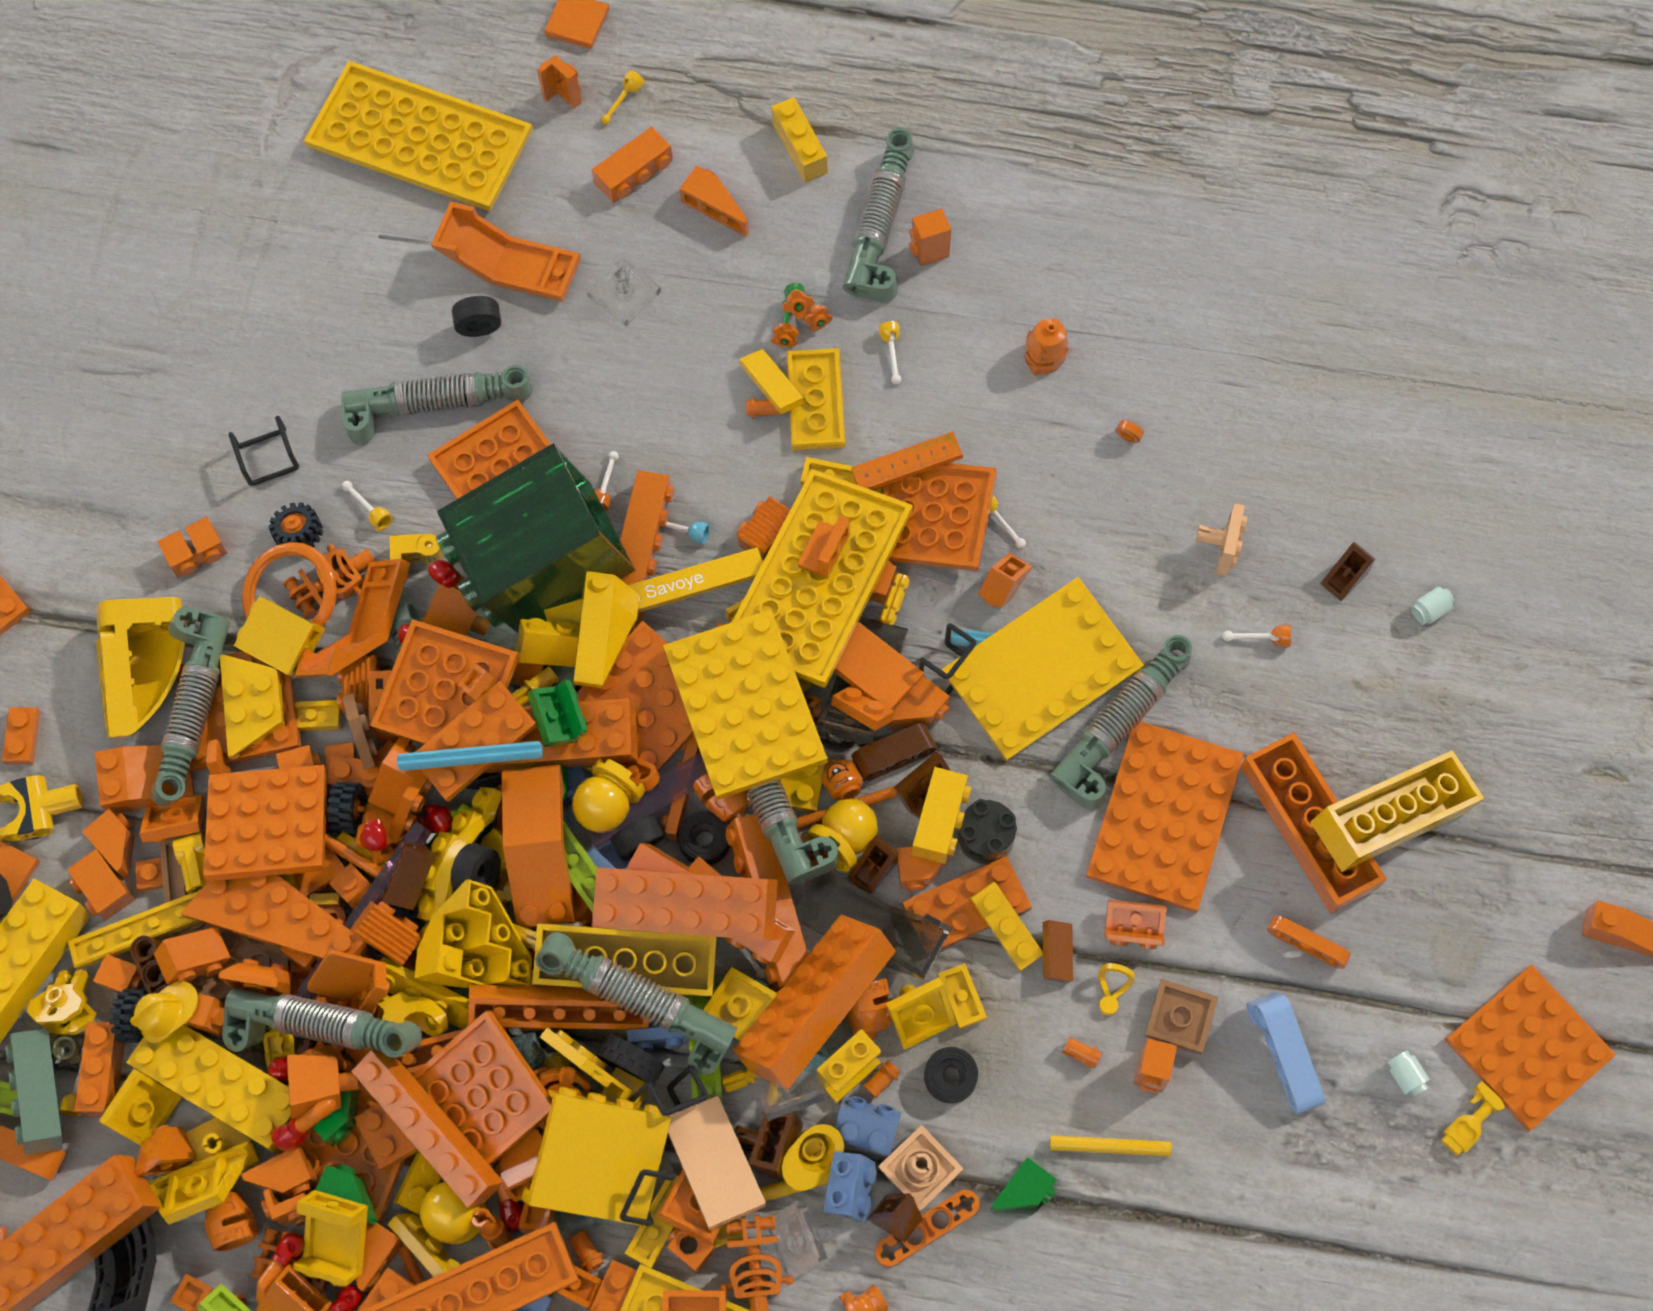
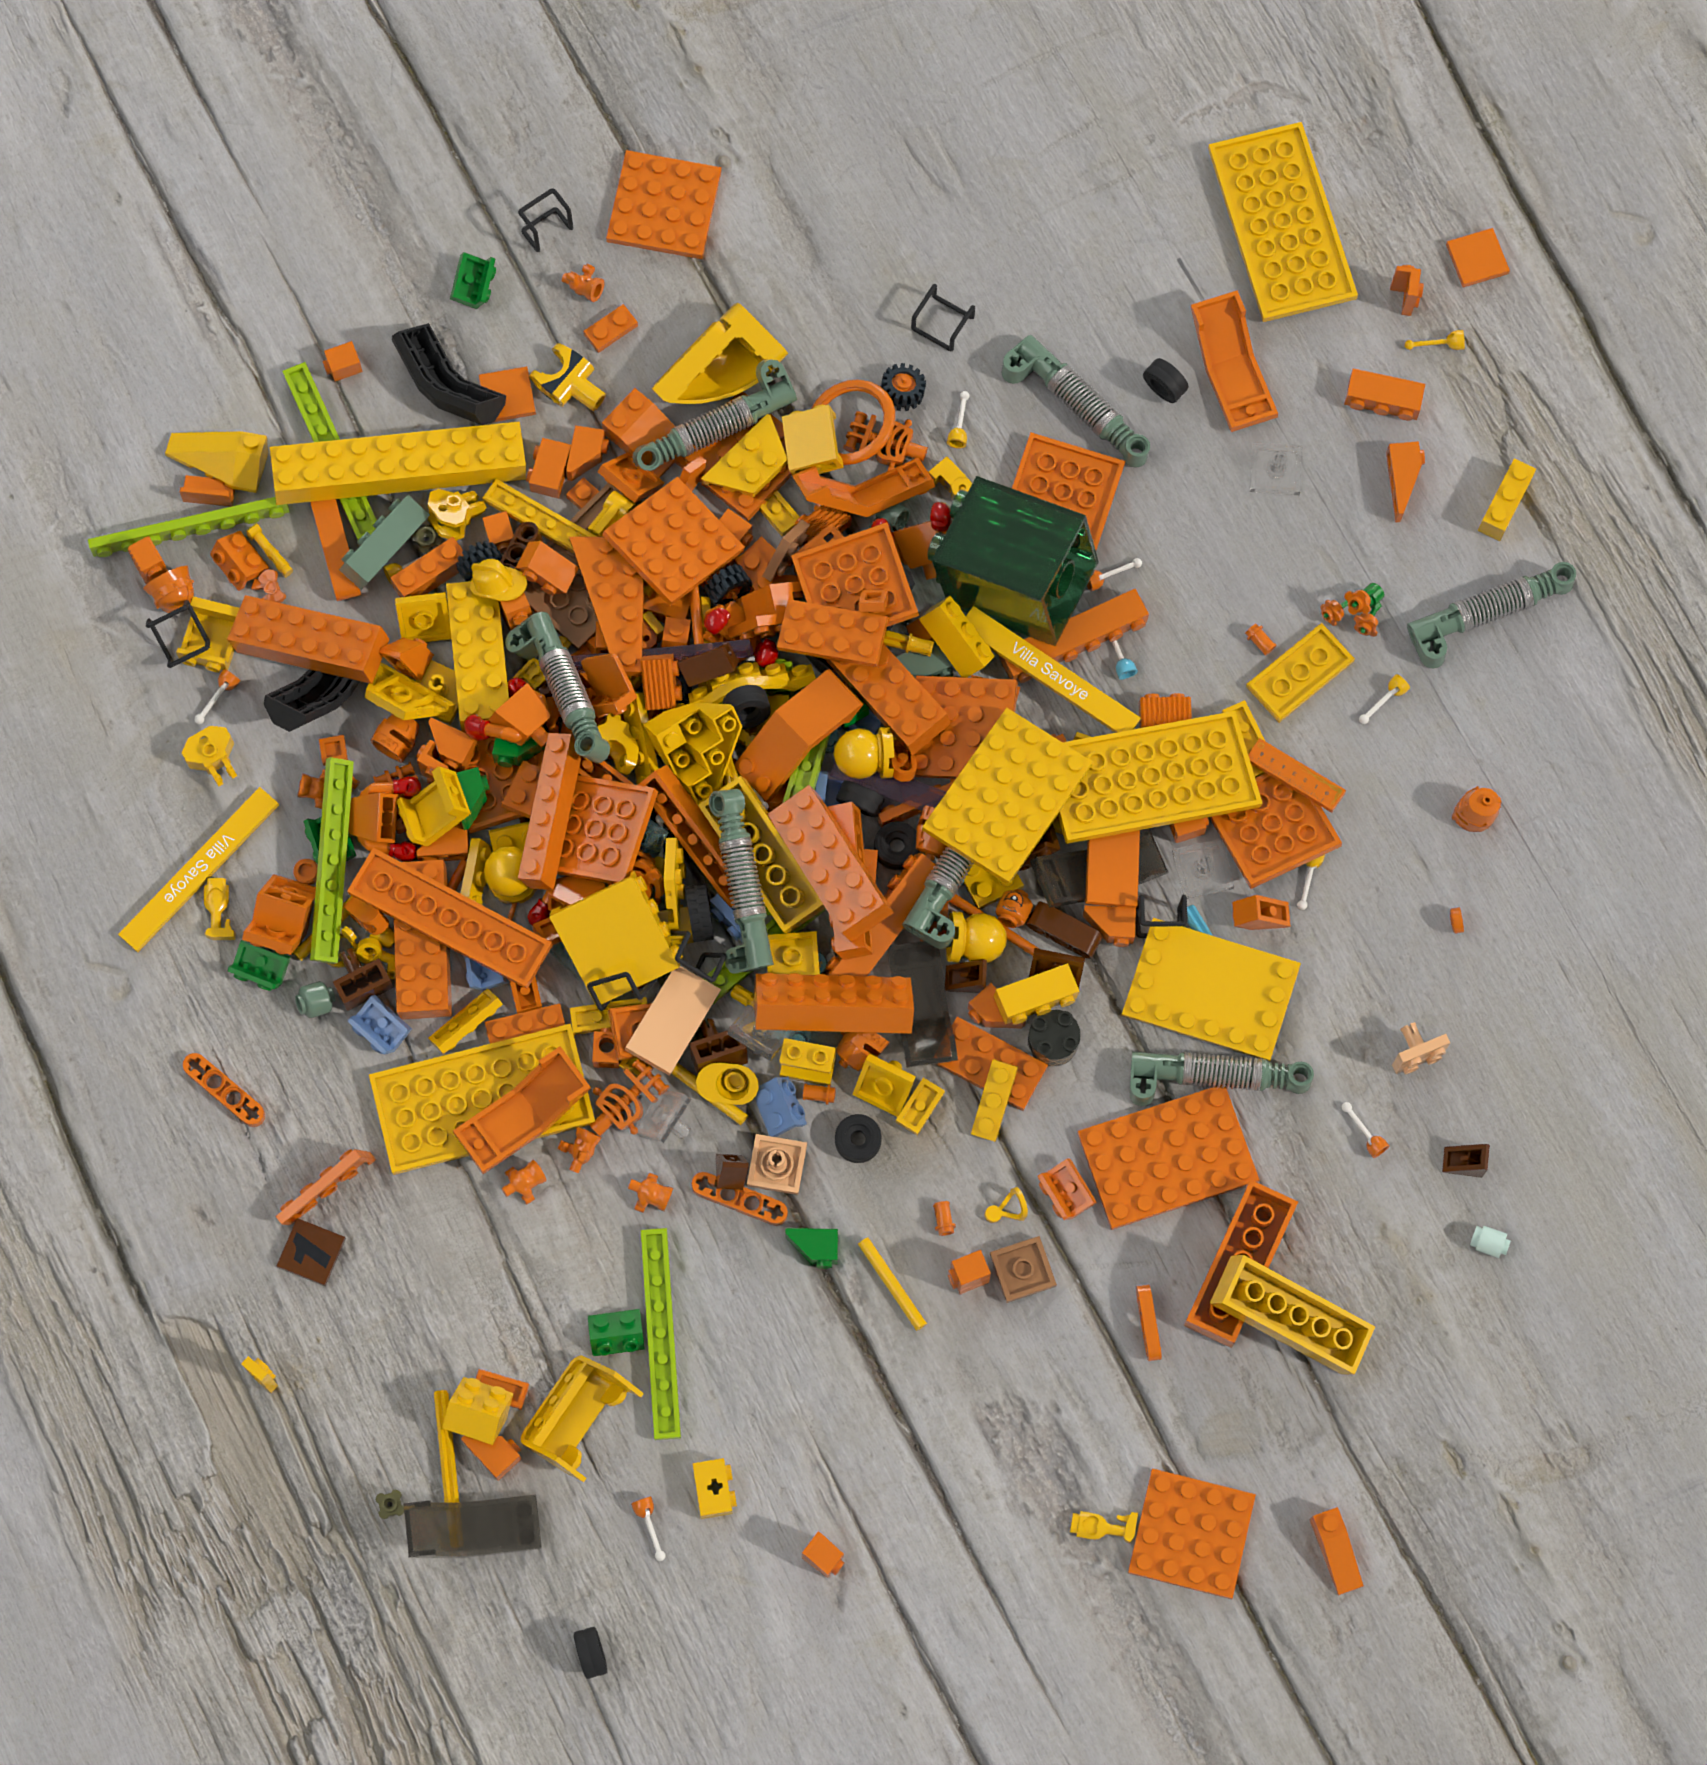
camera: 50 degrees right, 5 degrees up
(179, 554) = (843, 335): orange piece -> none
(262, 979) = (564, 621): orange slope -> none
(470, 755) = (817, 638): medium azure axle -> none
(491, 1227) = (519, 907): orange pin -> none
(558, 714) = (895, 674): green bracket -> none
(587, 1252) = (552, 983): orange pin -> none
(606, 619) = (995, 654): yellow wedge -> none
(771, 381) = (1285, 630): yellow tile -> none
(825, 547) = (1175, 764): orange panel -> none
(850, 1186) = (727, 1125): medium blue bracket -> none
(862, 708) = (1073, 881): orange plate -> none
(894, 599) = (1181, 845): yellow axle -> none
(930, 237) = (1497, 657): orange brick -> none
(1057, 951) = (1004, 1150): dark orange tile -> none
(1288, 1050) = (1052, 1360): light blue beam -> none
(1408, 1074) = (1103, 1457): light aqua brick -> none

